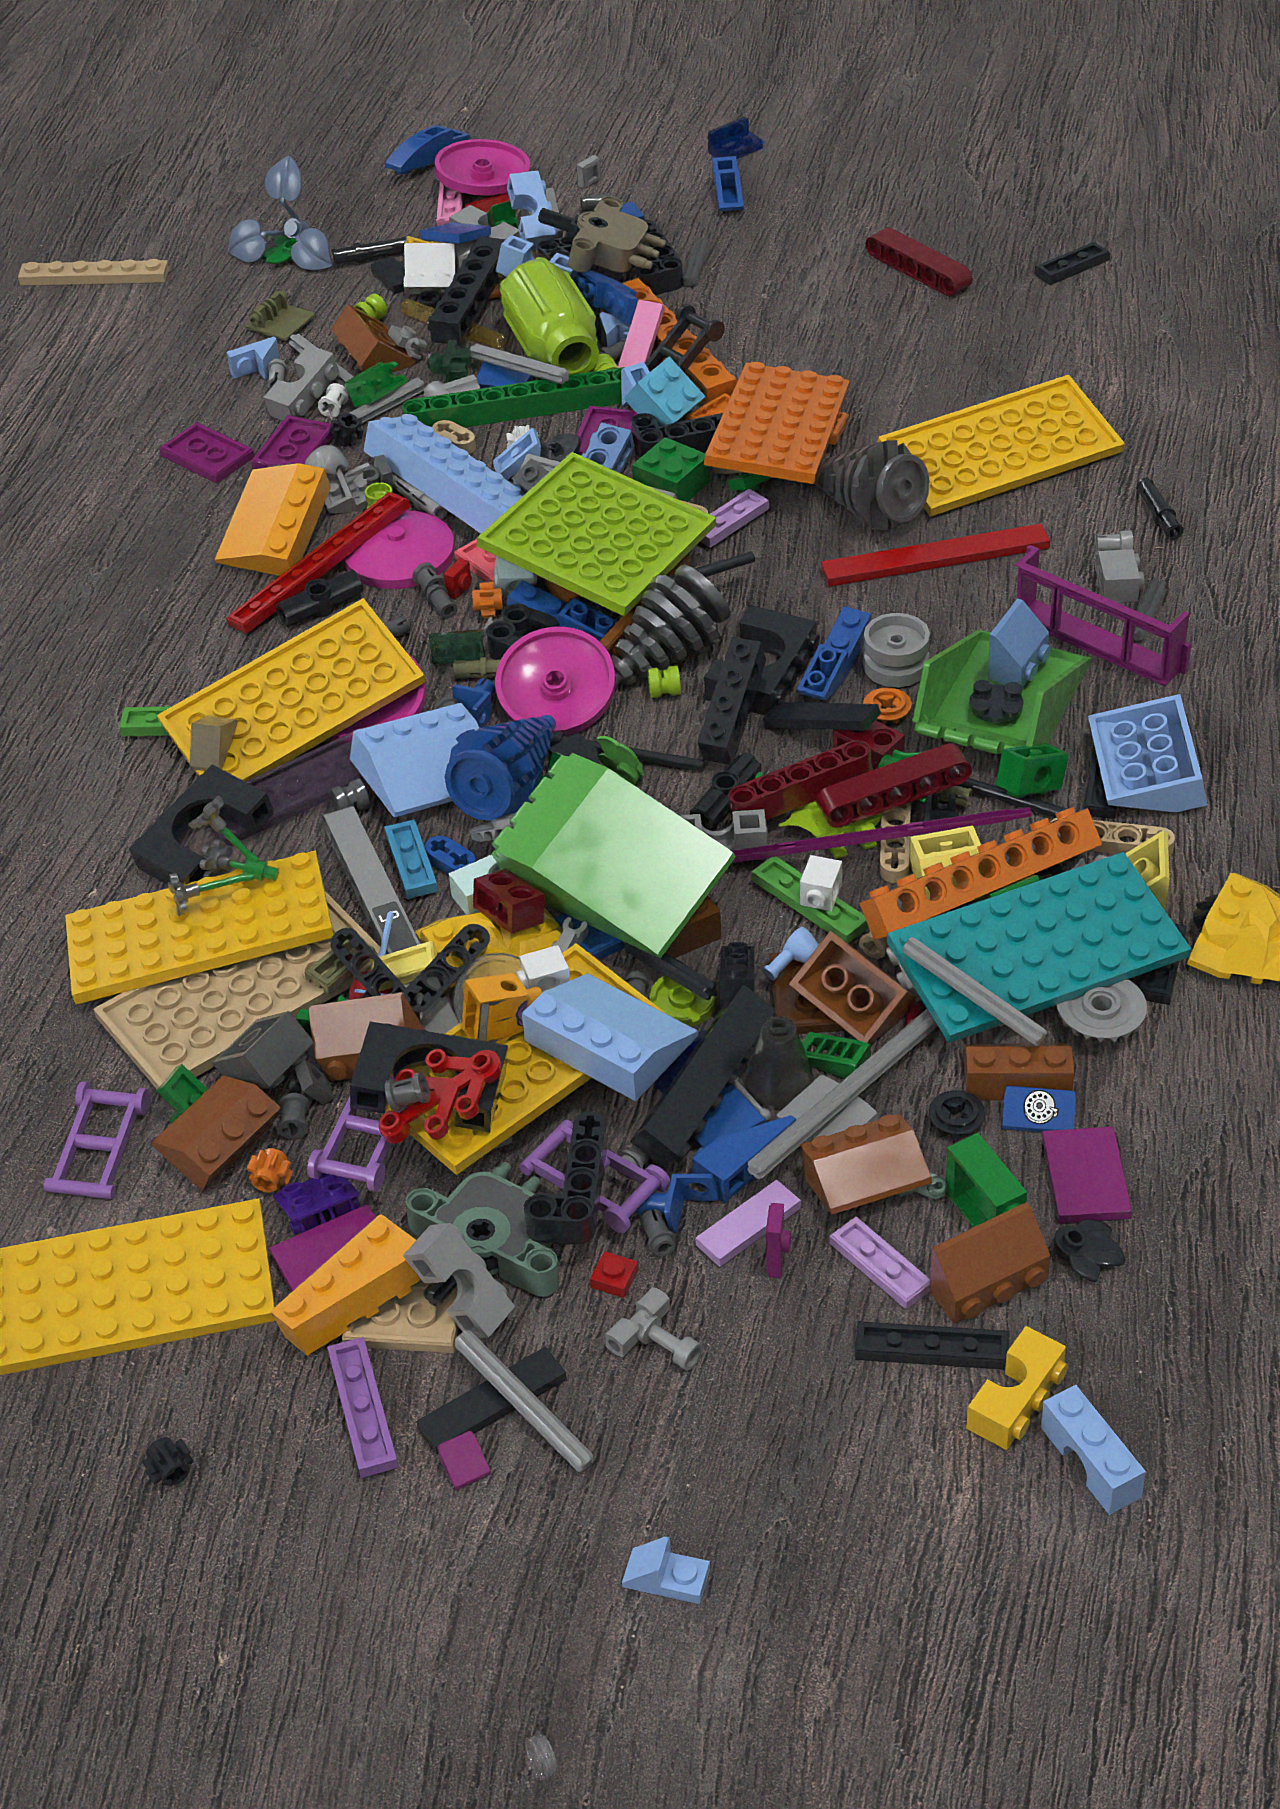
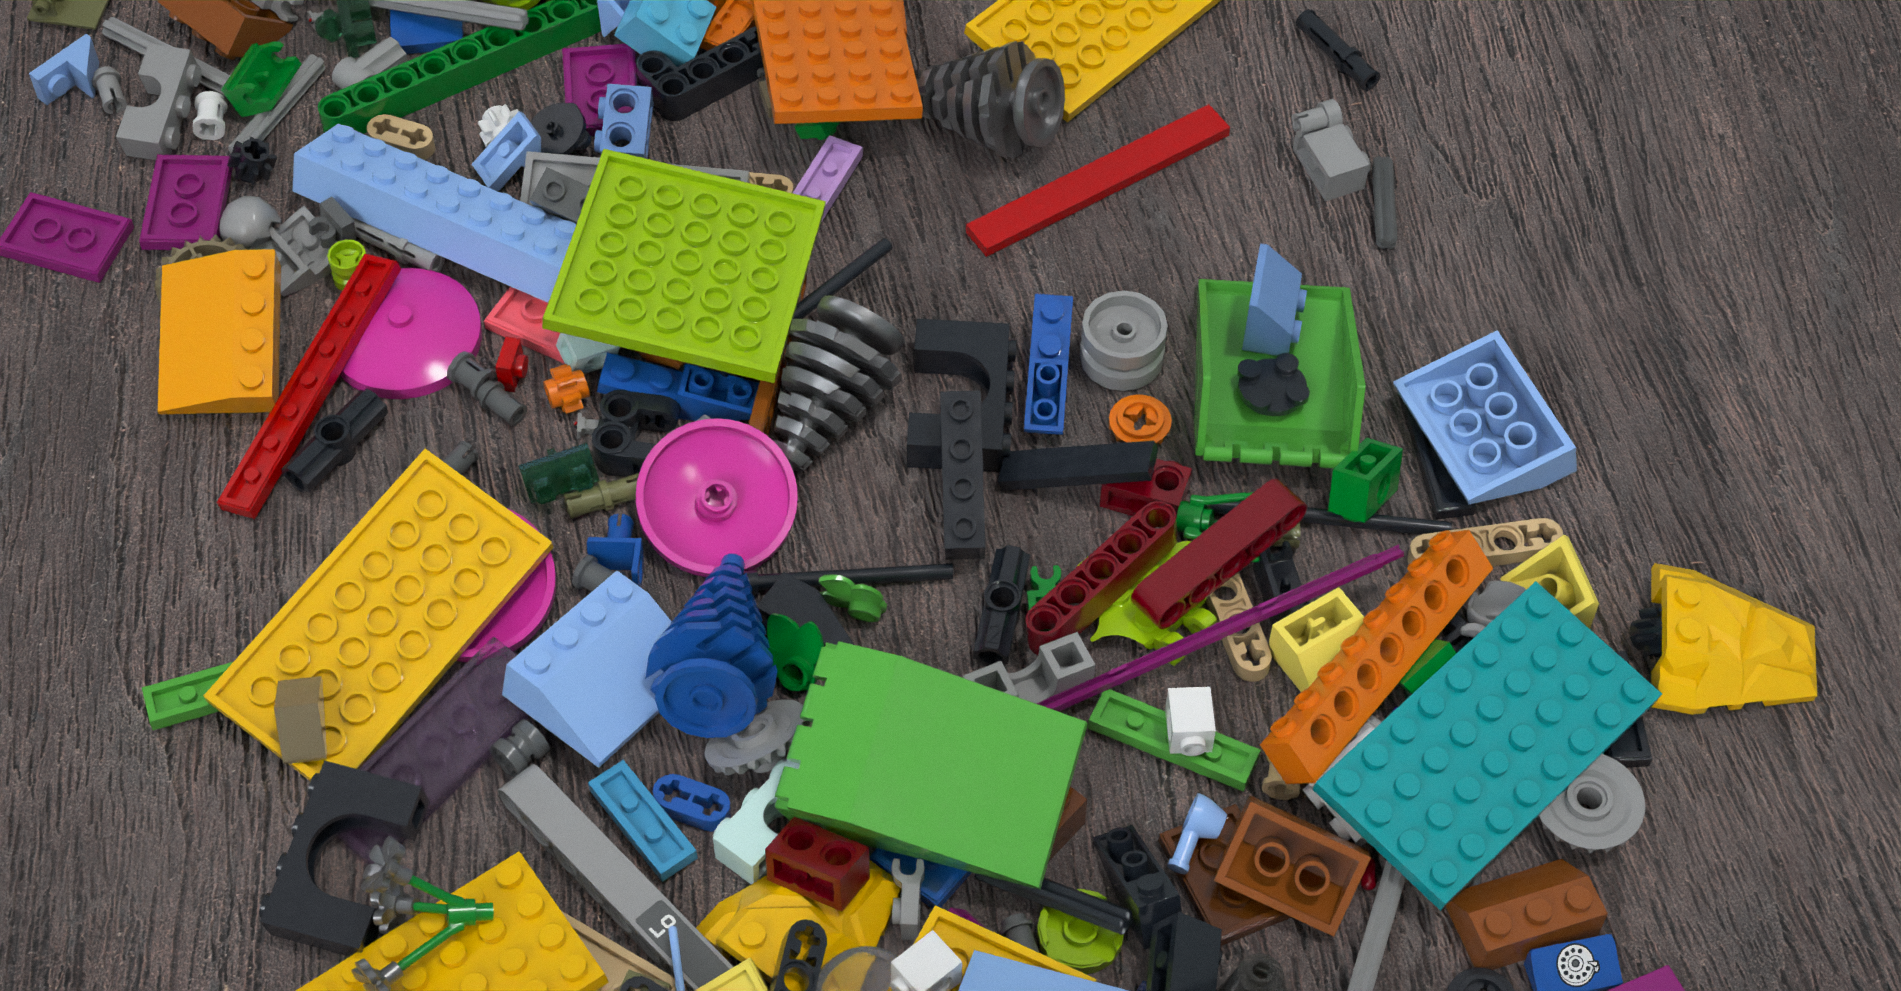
camera: 25 degrees left, 10 degrees up
(664, 681) = (851, 458): lime wheel -> none
(673, 469) = (719, 130): green brick -> none
(855, 1051) = (1318, 947): green slope -> none
(974, 991) = (1456, 839): light grey axle -> none
(1097, 640) = (1344, 259): magenta piece -> none

